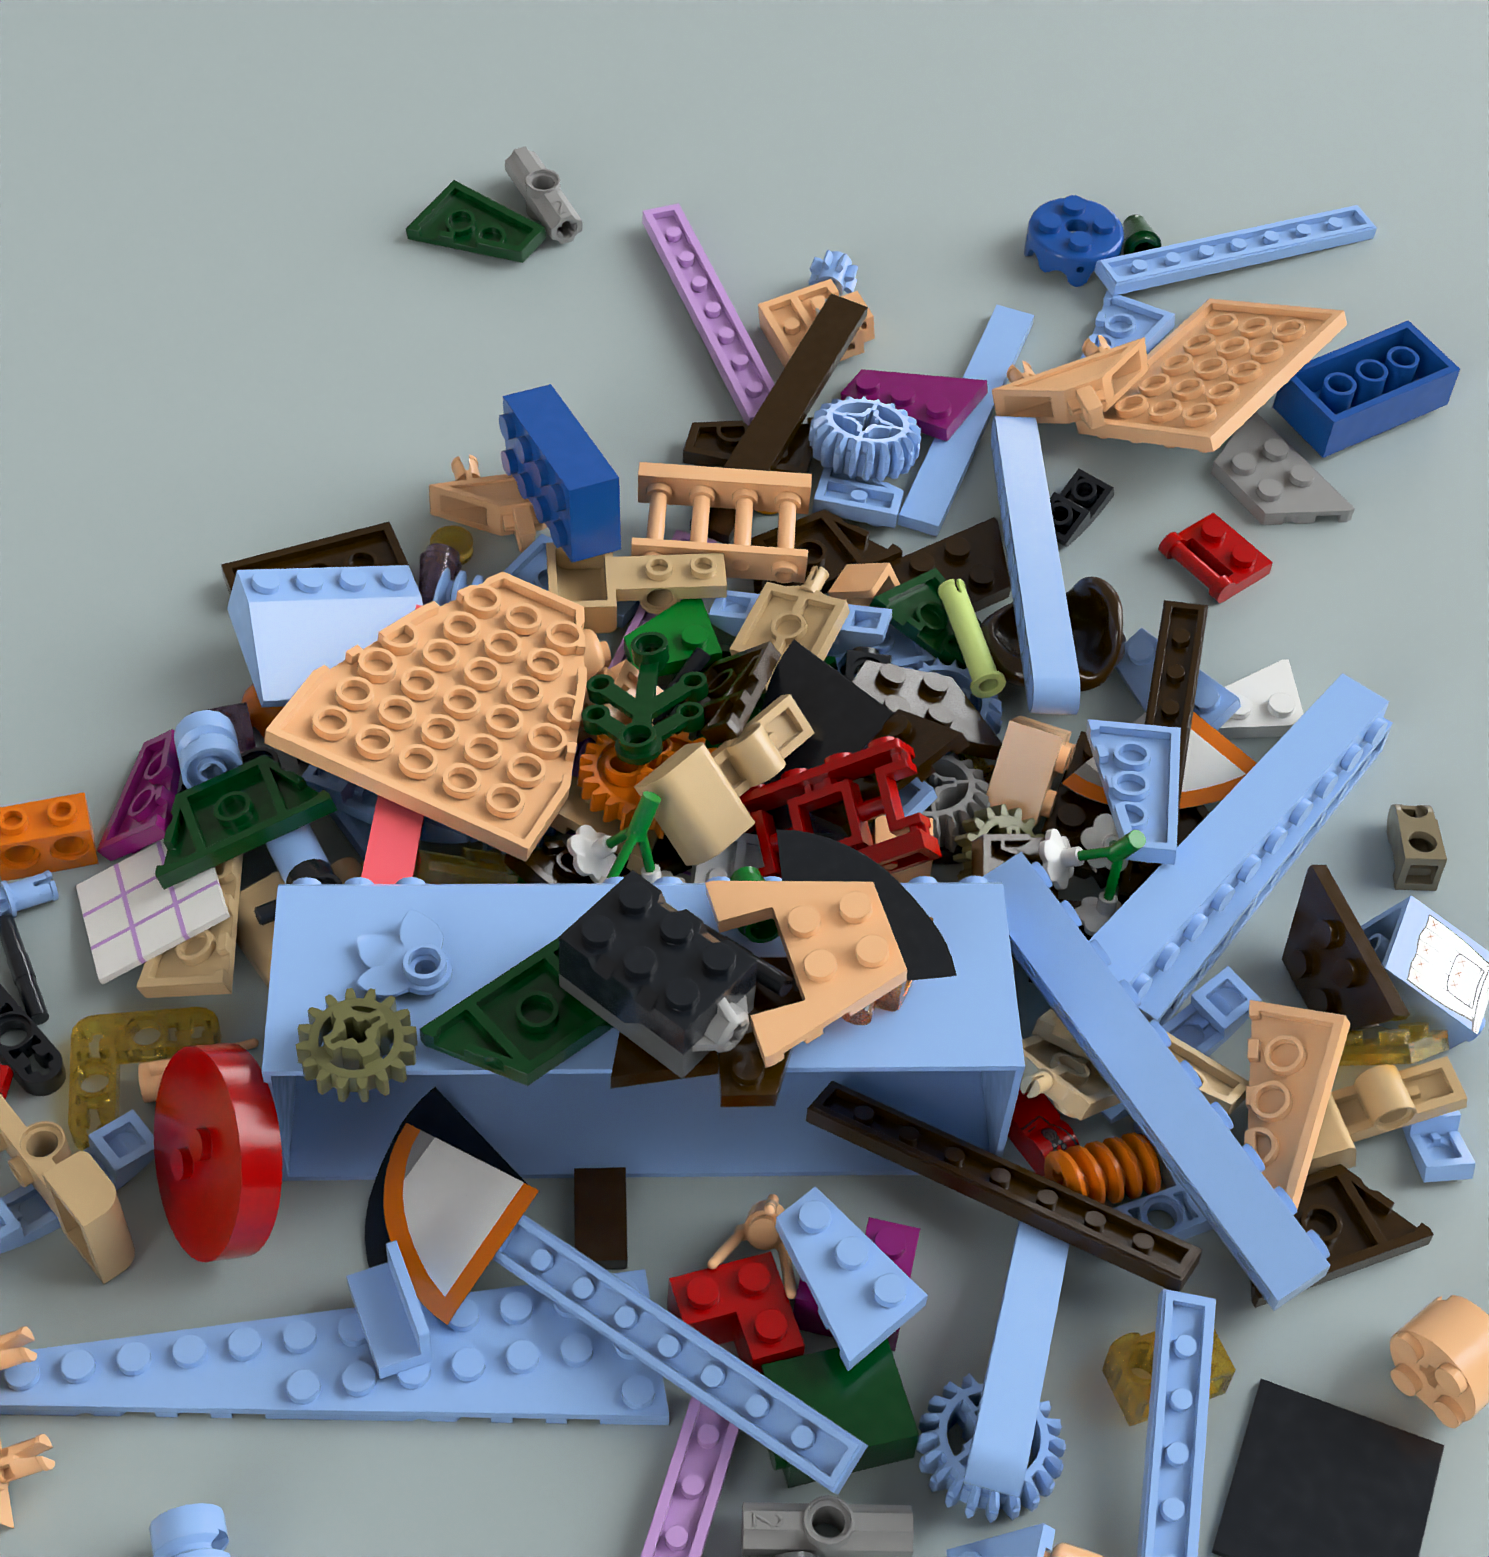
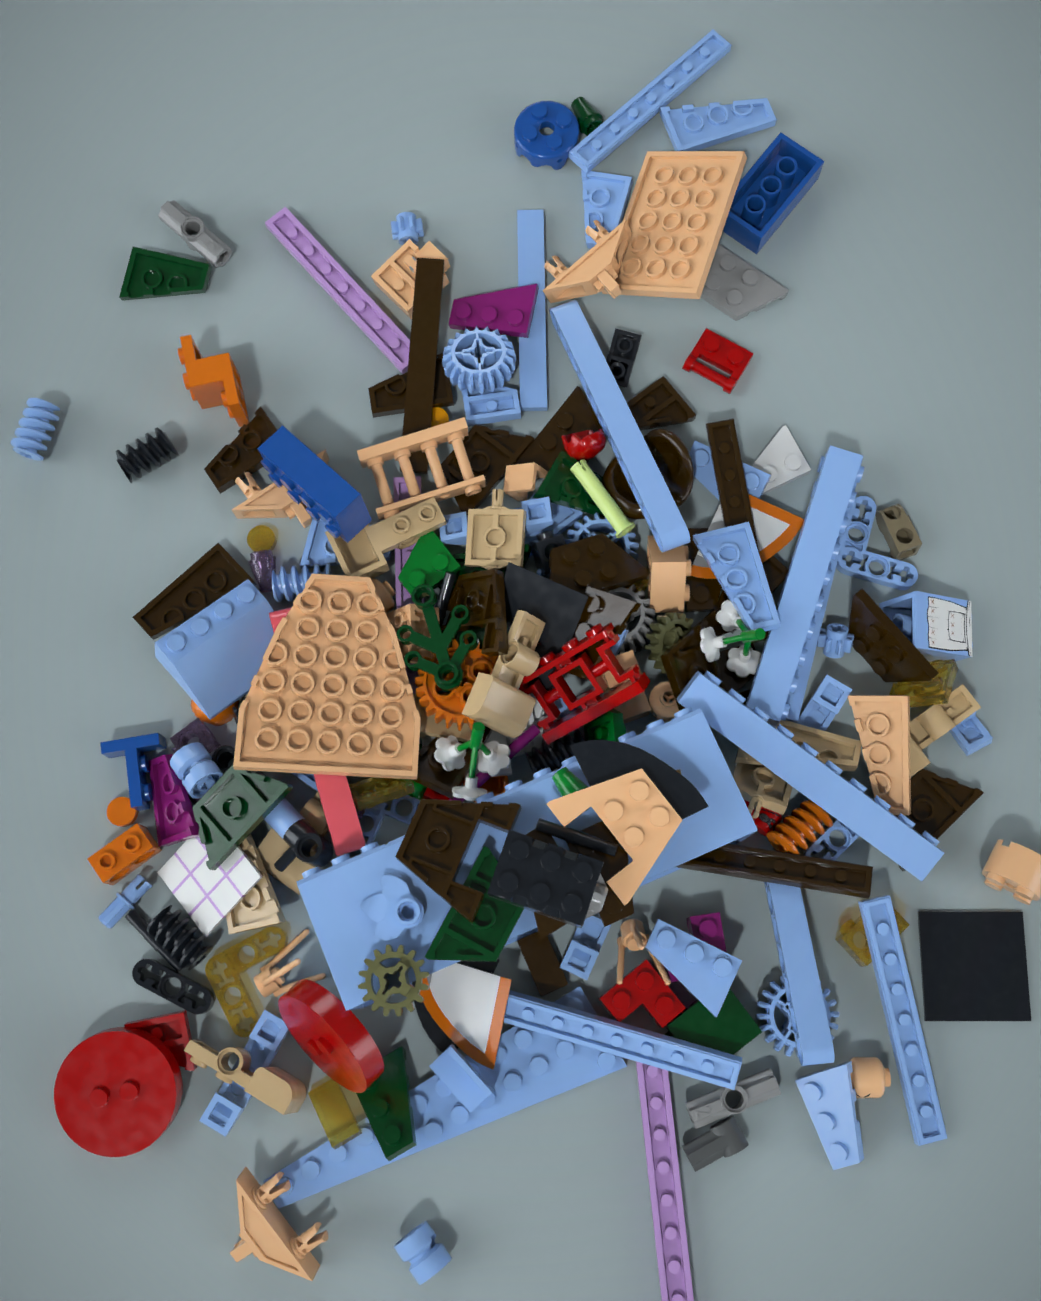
camera: 15 degrees left, 25 degrees up
(60, 968) = (178, 938): none -> black piece
(70, 782) = (120, 812): none -> orange tile
(128, 722) = (136, 763): none -> blue bracket
(161, 1299) = (334, 1113): none -> clear yellow tile
(214, 321) = (34, 428): none -> light blue piece
(252, 1310) = (389, 1108): none -> dark green wing
(345, 394) = (145, 454): none -> black piece
(460, 439) = (242, 453): none -> dark brown wing
(482, 340) = (213, 380): none -> orange bracket
(518, 896) = (440, 840): none -> dark brown wing
(682, 1218) = (585, 947): none -> light blue slope
(978, 567) = (584, 444): none -> red hair
(1117, 567) = (659, 406): none -> dark brown wing
(1261, 944) = (835, 640): none -> light blue gear
(1344, 850) = (858, 552): none -> light blue beam
(1363, 303) = (710, 125): none -> light blue wing

